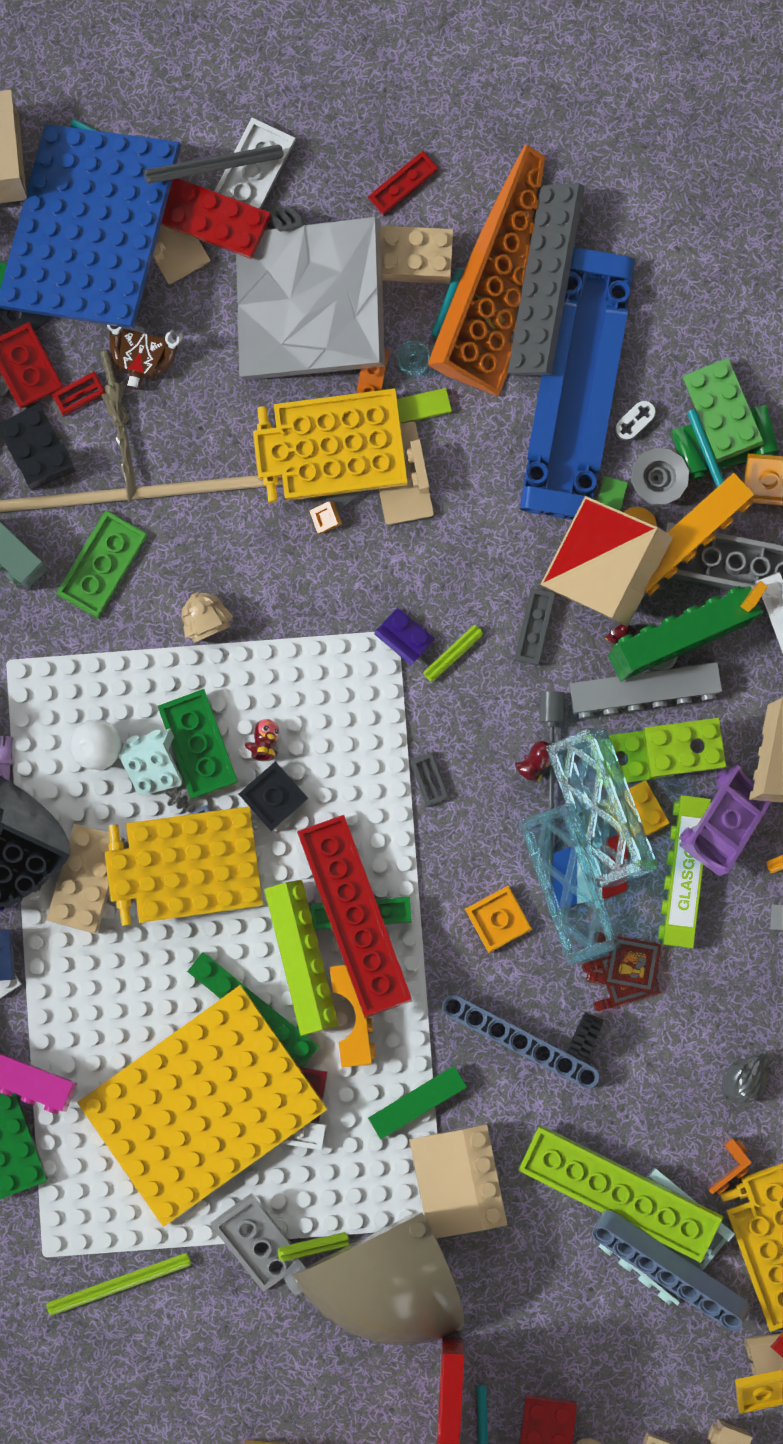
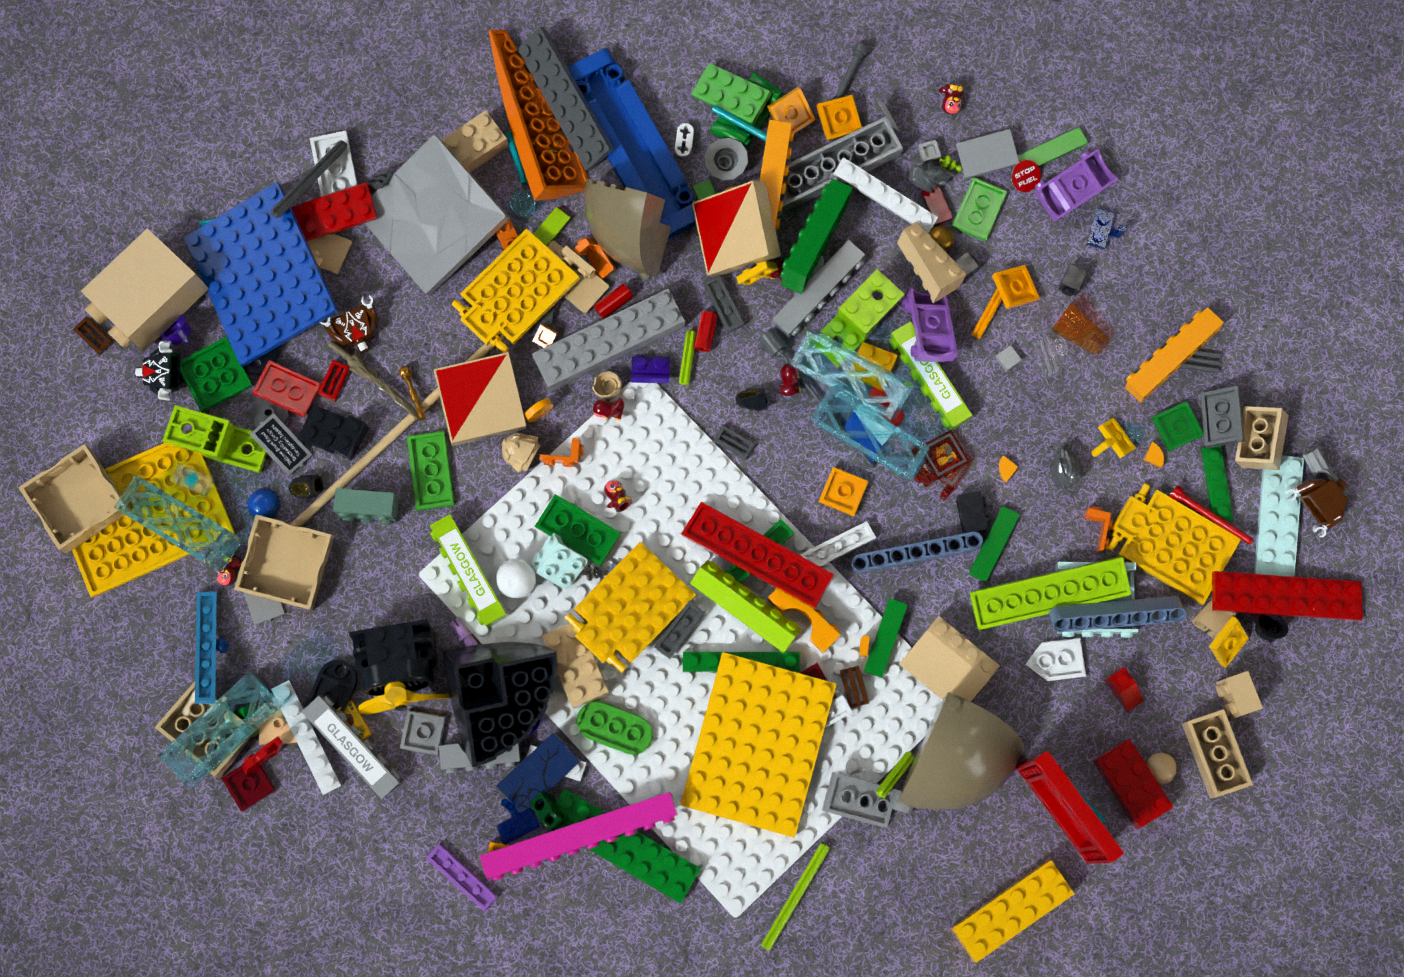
camera: 45 degrees left, 5 degrees down
(55, 699) = (468, 570): none -> brick
(75, 973) = (614, 728): none -> bright green tile
(155, 444) = (406, 375): none -> pearl gold piece
(206, 530) = (480, 399): none -> tile
(217, 927) = (679, 630): none -> dark grey plate
(256, 589) = (538, 410): none -> light orange piece
(261, 661) = (577, 450): none -> orange bracket
(273, 796) = (649, 524): black plate -> none
(325, 644) = (606, 409): none -> dark red animal
(336, 1145) = (850, 671): none -> reddish brown tile
(347, 618) = (607, 385): none -> tan hair
(386, 572) = (608, 340): none -> light grey brick
(387, 1094) = (864, 645): none -> light orange tile
(403, 183) = (432, 109): red tile -> none
(424, 534) = (613, 301): none -> red axle
(445, 472) = (596, 256): none -> orange bracket
(446, 971) = (840, 545): none -> white plate
(483, 750) = (752, 399): none -> black rock
(493, 641) = (705, 331): none -> red axle
(497, 467) = (627, 225): none -> dark tan brick
(575, 1266) = (1058, 660): none -> white tile
(585, 1036) = (952, 517): black tyre -> none
(587, 620) = (762, 270): none -> yellow plate
(607, 1096) = (993, 544): none -> green tile
(611, 1047) = (972, 512): none -> black brick
(617, 1350) = (1124, 688): none -> red slope
(685, 1029) = (1006, 468): none -> light orange tile
(754, 596) = (840, 180): light orange tile -> none

